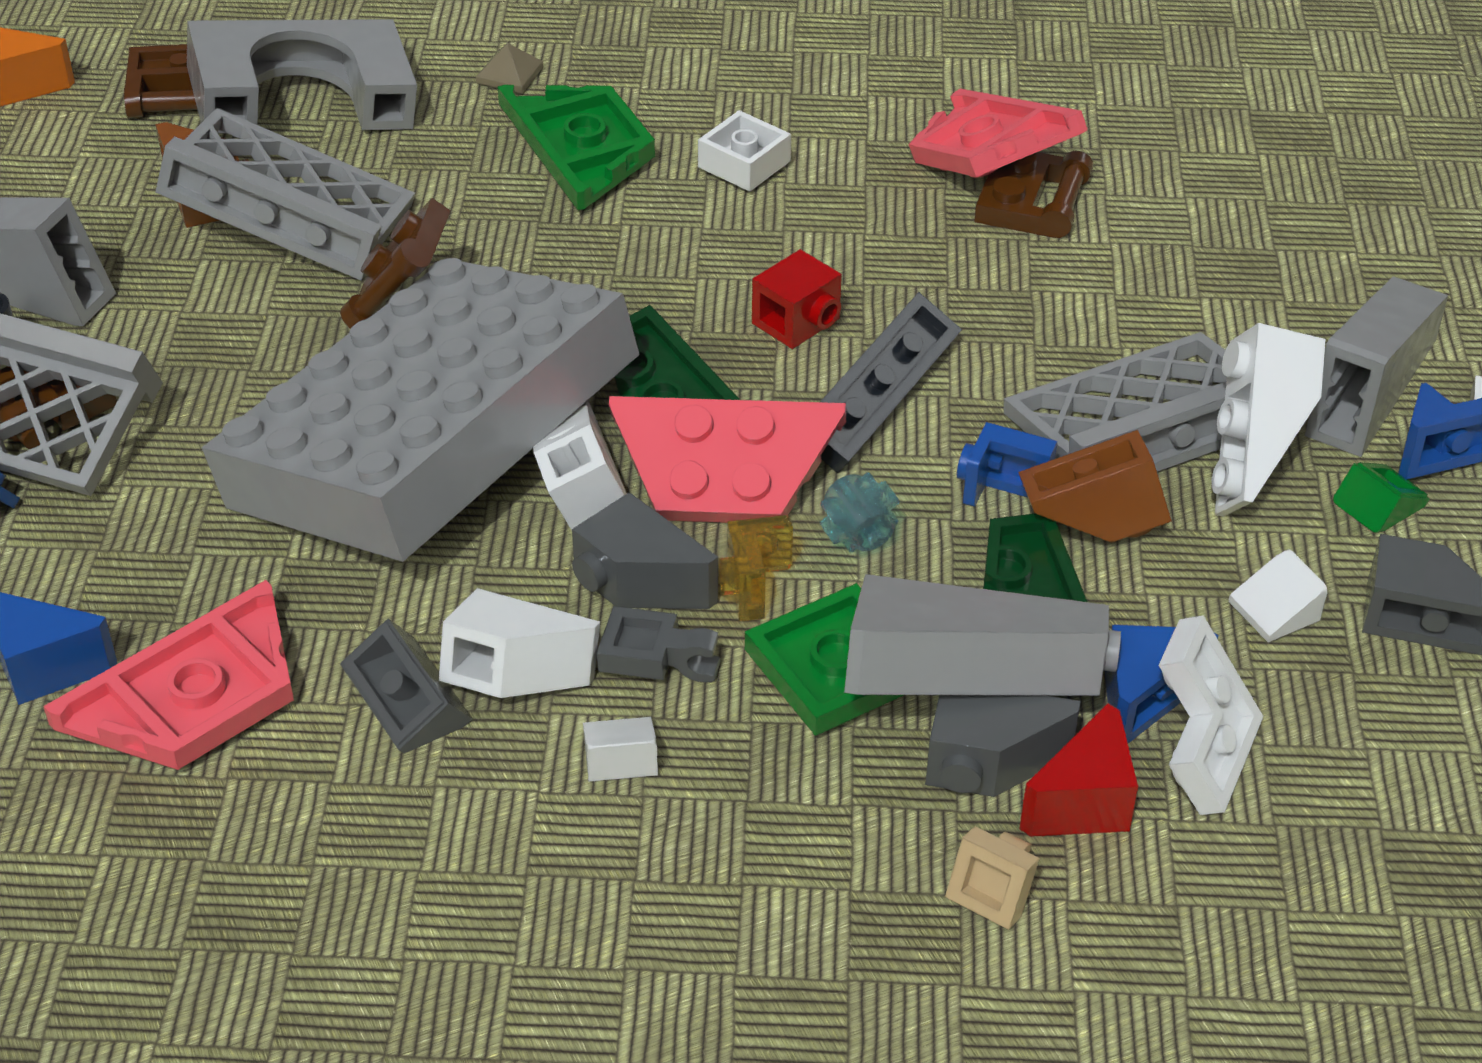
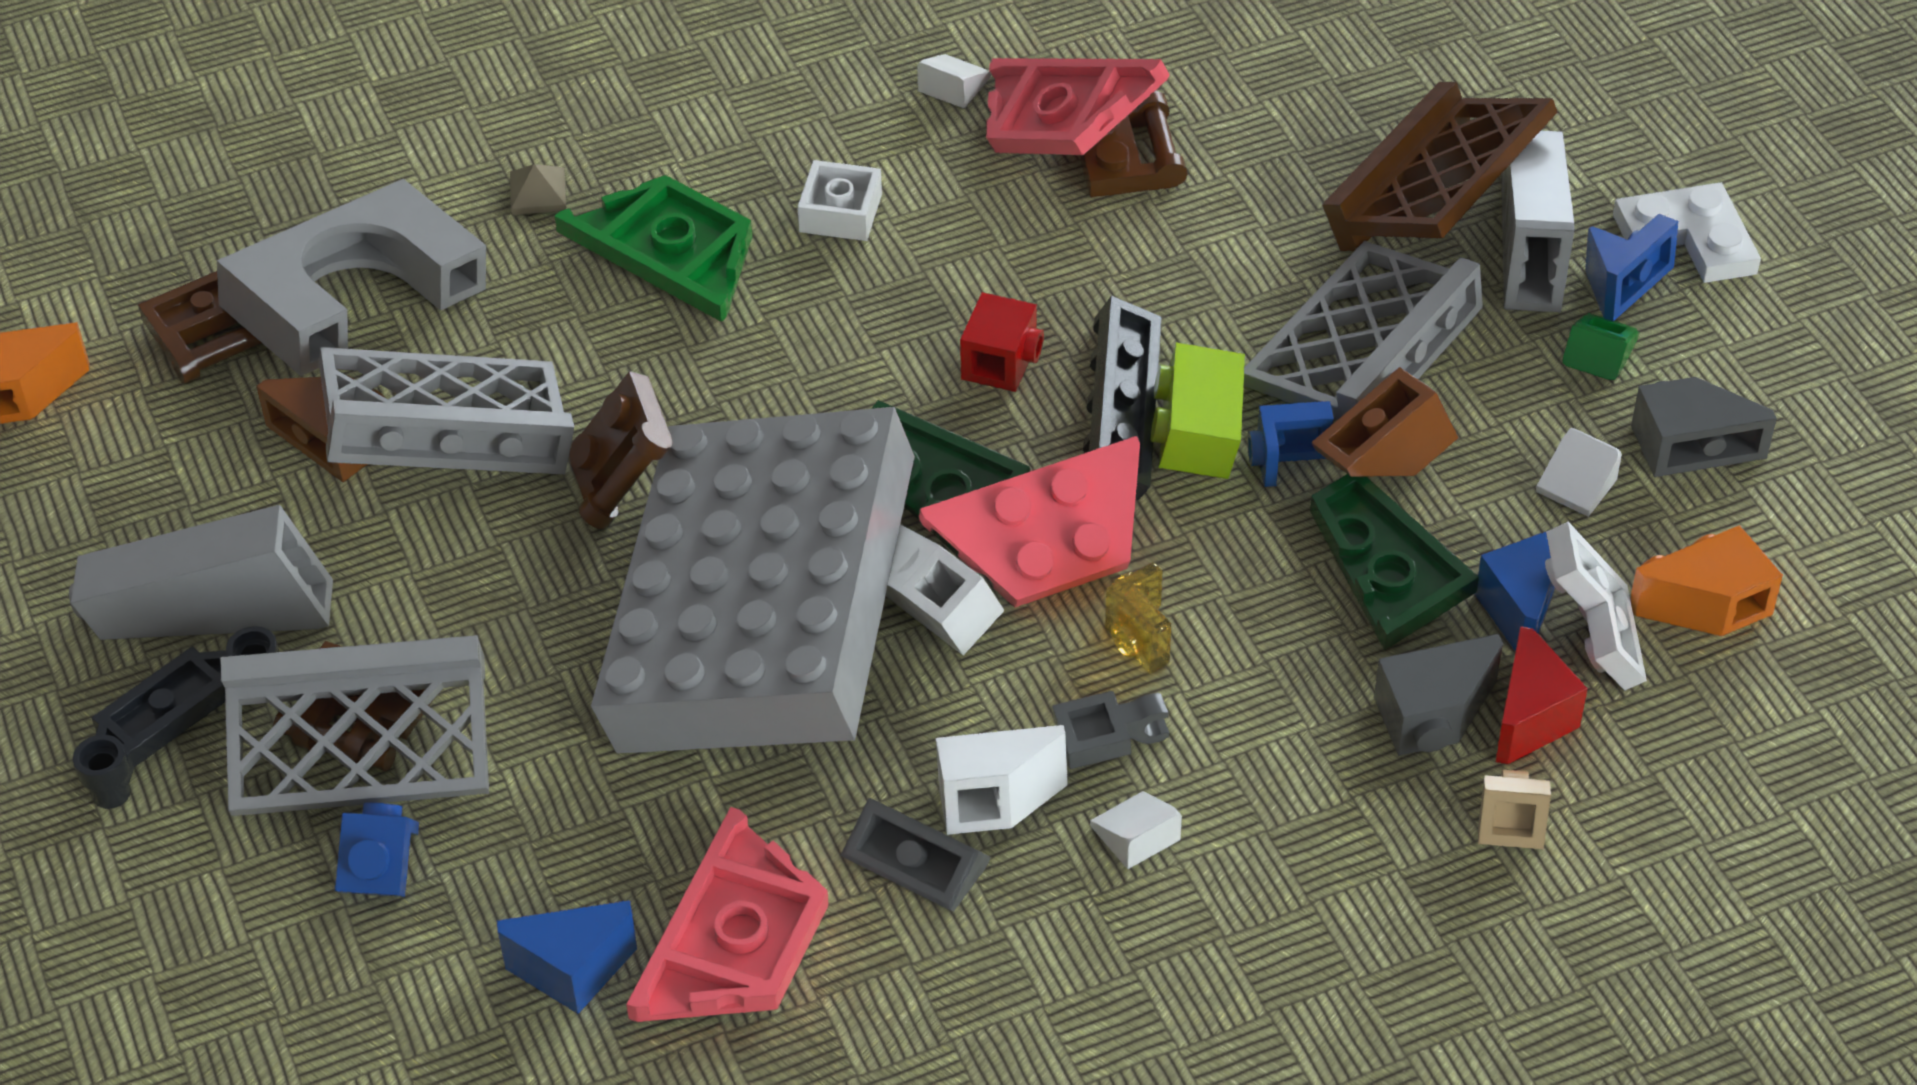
camera: 25 degrees left, 5 degrees up
(643, 559) = (1045, 651): dark grey slope -> none
(808, 658) = (1264, 675): green plate -> none
(859, 512) = (1199, 533): clear light blue gear -> none
(913, 94) = (951, 79): none -> white slope
(935, 412) = (1200, 410): none -> lime brick
(975, 642) = (1388, 617): light grey slope -> none
(1268, 397) = (1485, 304): white slope -> none
(1297, 281) = (1422, 145): none -> reddish brown fence
(1344, 744) = (1708, 586): none -> orange slope

